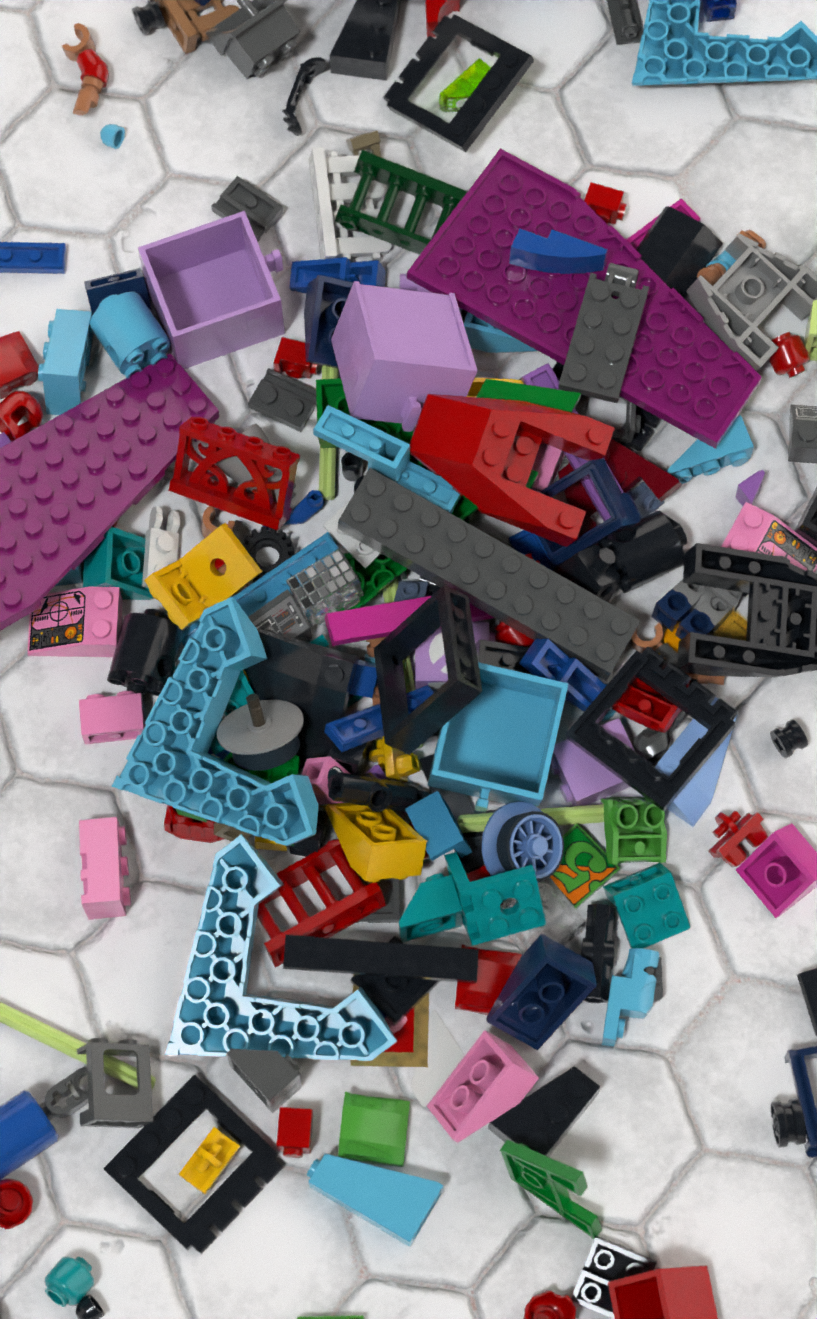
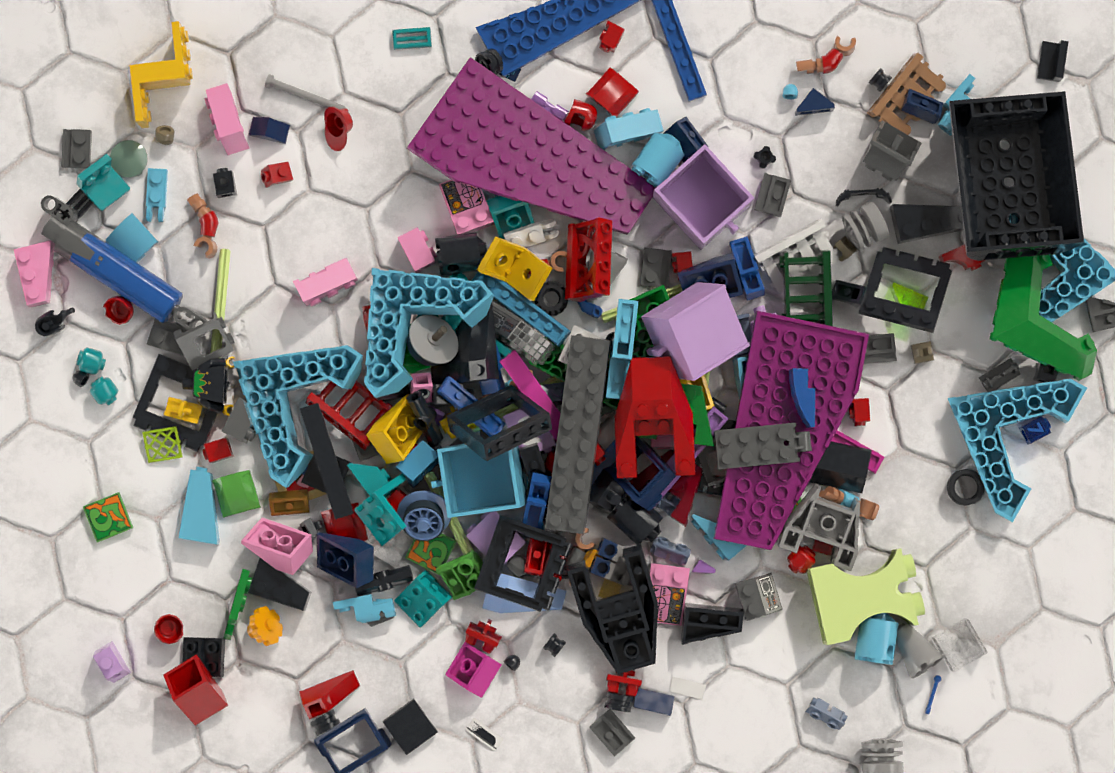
camera: 65 degrees right, 15 degrees up
(82, 1147) = (163, 336): none -> dark grey plate
(125, 1277) = (104, 390): none -> teal head
(142, 108) = (814, 103): none -> dark blue slope
(188, 1099) = (210, 384): none -> black torso
(192, 194) = (764, 152): none -> black plate
(243, 1243) = (162, 444): none -> lime window
(345, 100) = (868, 225): none -> light grey wheel
(420, 1053) = (289, 502): none -> pearl gold slope
(433, 152) = (848, 292): none -> black slope
(471, 1030) = (310, 527): none -> black tile
(527, 144) = (880, 349): none -> dark grey plate
(552, 100) = (922, 352): none -> dark tan tile
(602, 1160) = (265, 626): none -> light orange plant
(714, 517) = (679, 552): none -> sand blue hinge
(746, 1108) = (326, 695): none -> red slope
(768, 91) = (951, 487): none -> black tyre
(777, 322) = (822, 547): none -> red tile
(793, 810) = (512, 662): none -> black hinge

